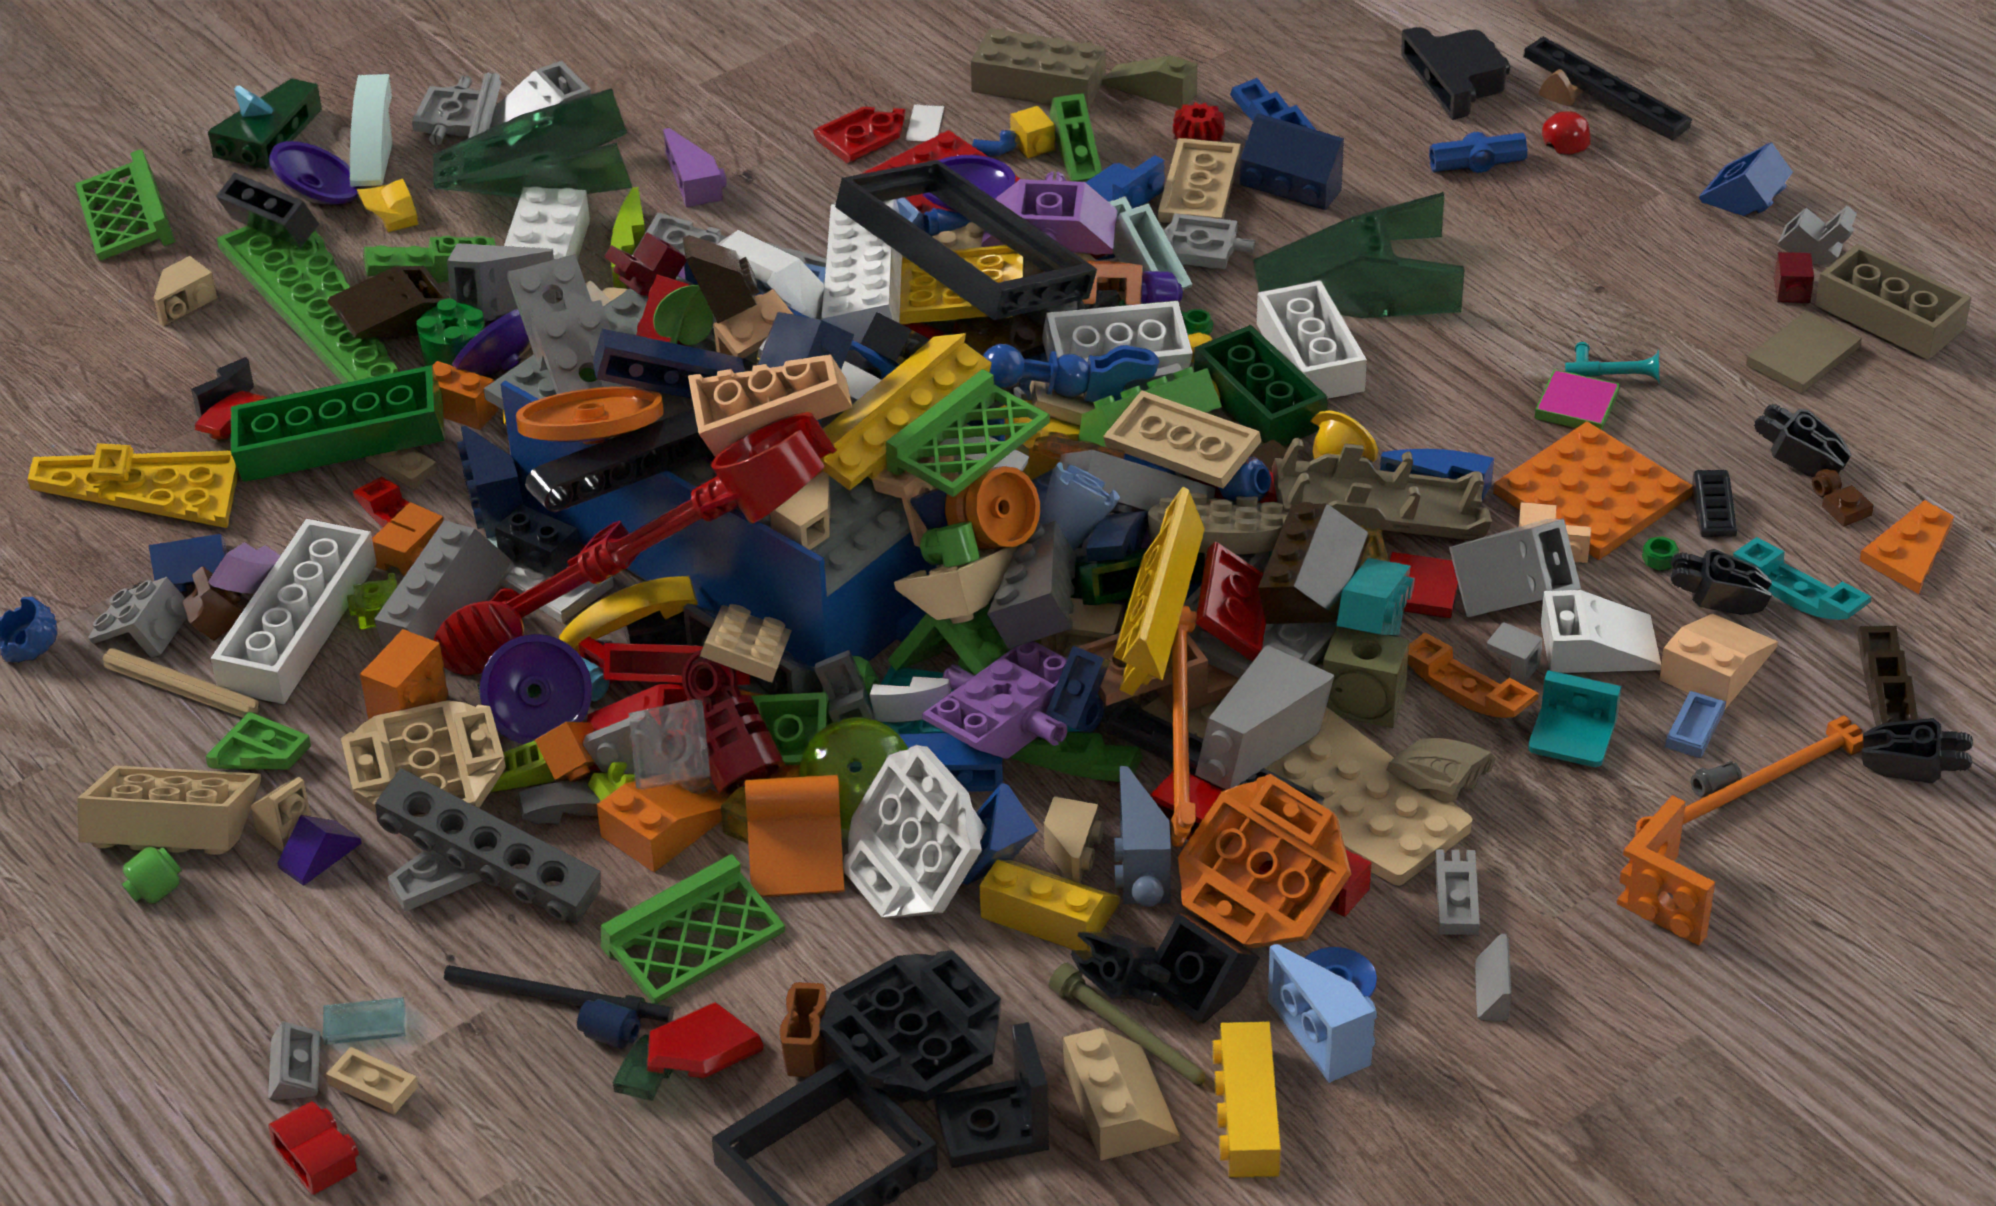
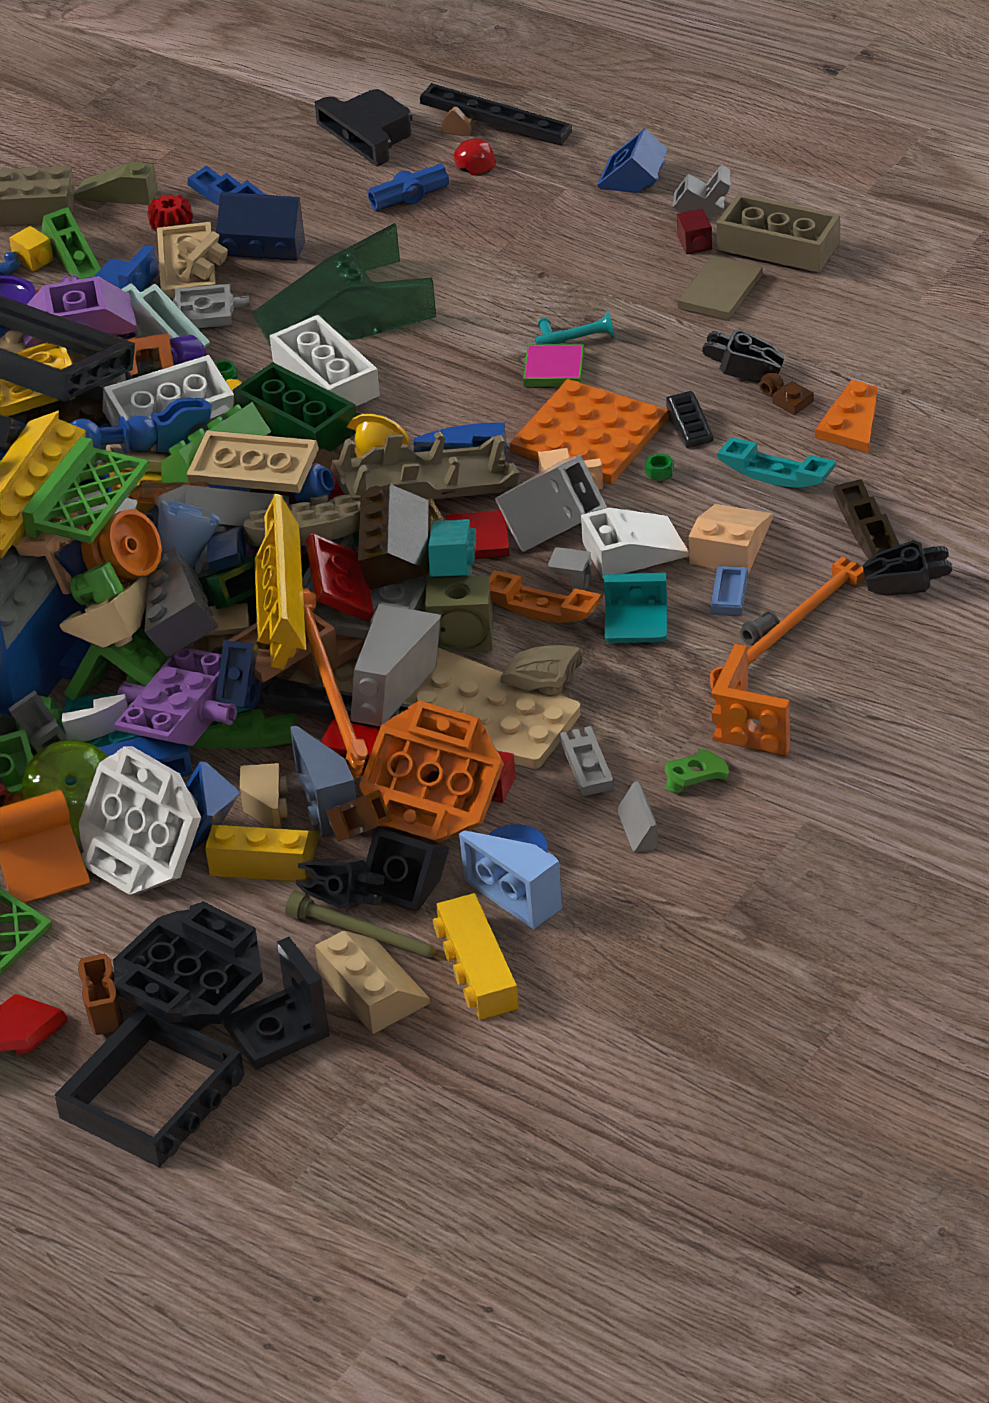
camera: 15 degrees left, 0 degrees up
(1162, 894) = (358, 816): none -> reddish brown brick
(1209, 185) = (202, 251): none -> tan hips
(1564, 940) = (682, 775): none -> bright green piece
(1722, 582) = (715, 477): black hinge -> none

